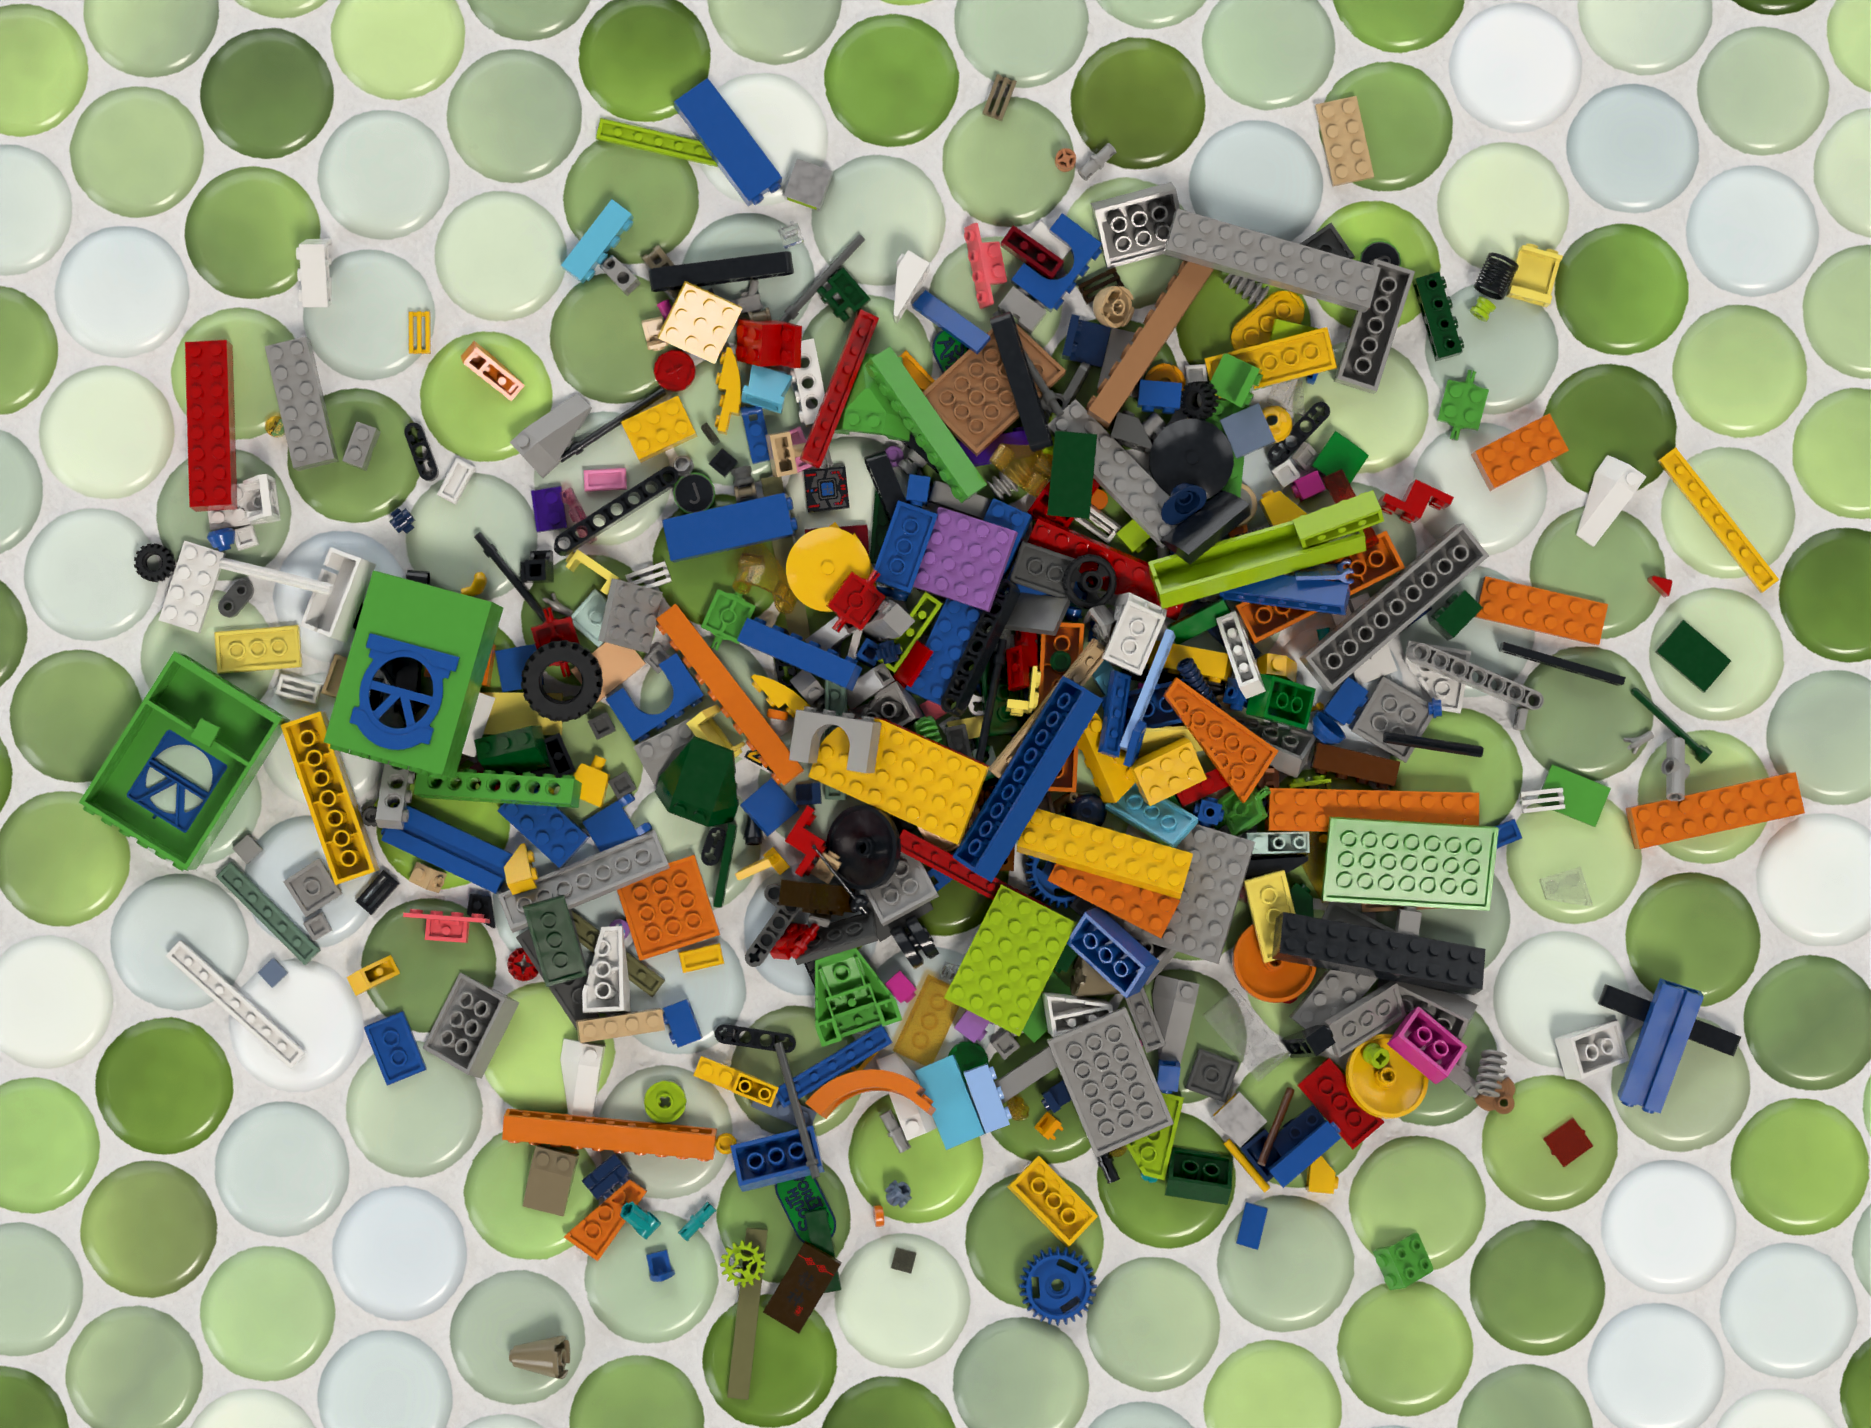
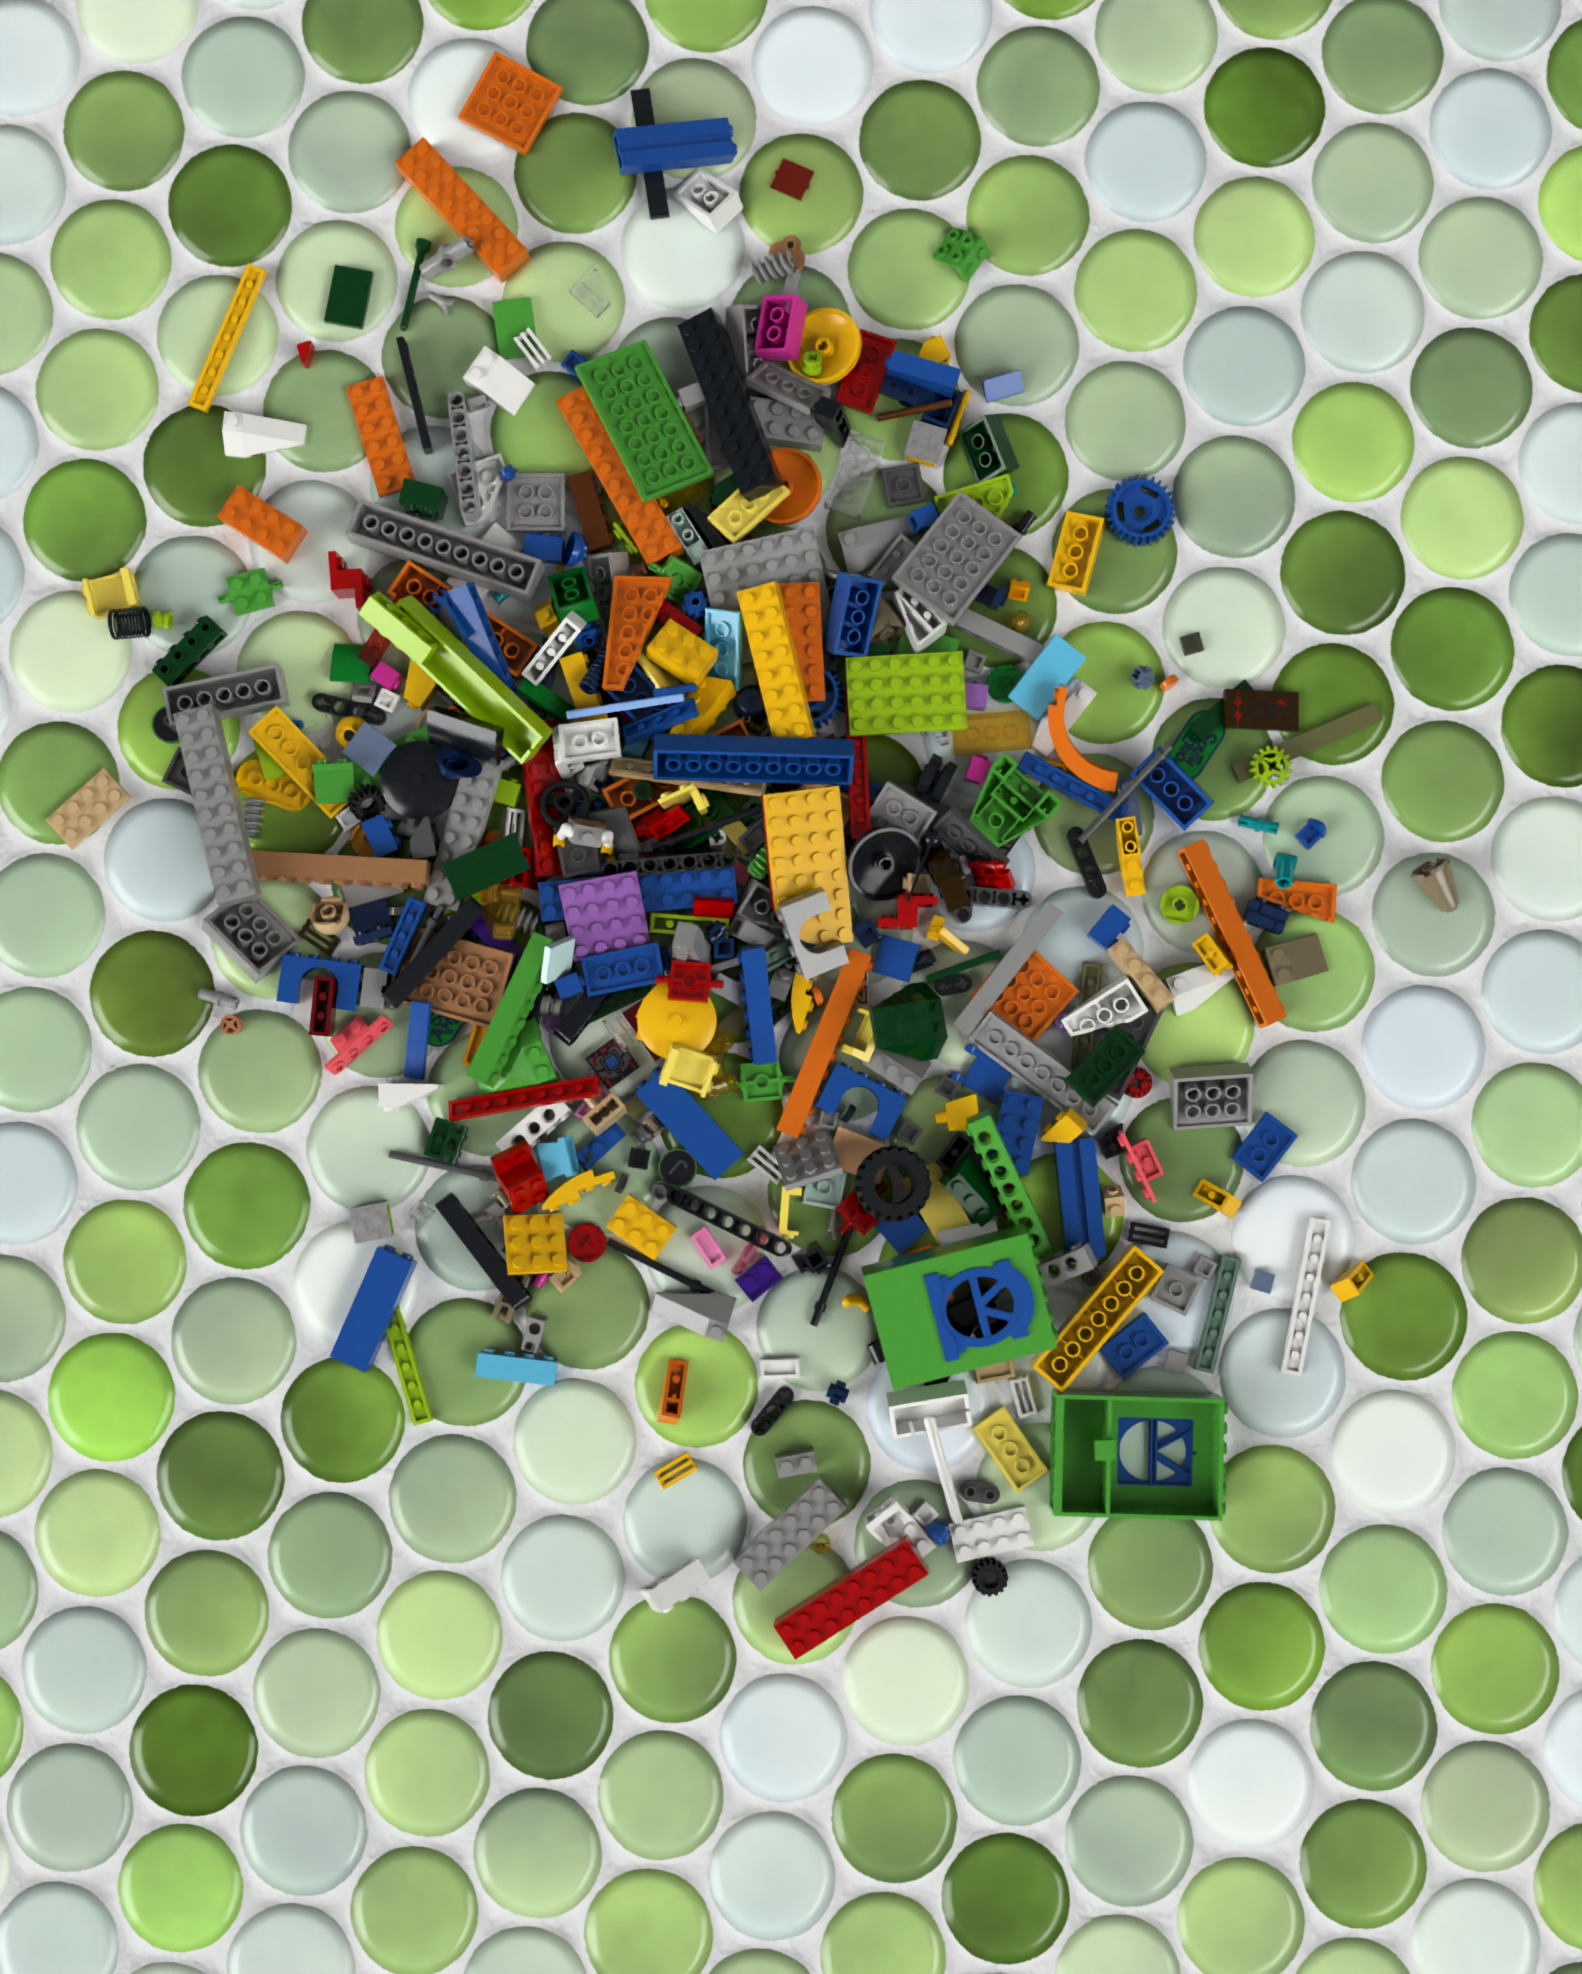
camera: 120 degrees left, 0 degrees up
(223, 1055) = (1352, 1281): none -> yellow slope
(284, 818) = (1133, 1345): none -> blue tile
(600, 1104) = (1212, 954): none -> yellow hinge
(652, 679) = (847, 1113): none -> black tile
(699, 905) = (1007, 968): none -> light grey tile
(701, 958) = (1052, 947): yellow tile -> none
(724, 1142) = (1183, 838): yellow plate -> none
(776, 554) = (689, 1069): none -> light yellow panel
(850, 513) = (621, 1031): none -> clear tile
(895, 1131) = (1094, 708): light grey pin -> none
(947, 491) = (557, 959): none -> light aqua tile
(987, 1097) = (1026, 648): light blue brick -> none
(1005, 81) = (194, 1111): dark tan tile -> none
(1049, 583) = (585, 833): none -> torso
(1054, 363) = (403, 936): none -> blue tile
(1433, 744) = (538, 459): black axle -> none
(1530, 751) = (498, 381): none -> white slope
(1794, 915) = (510, 103): none -> orange plate

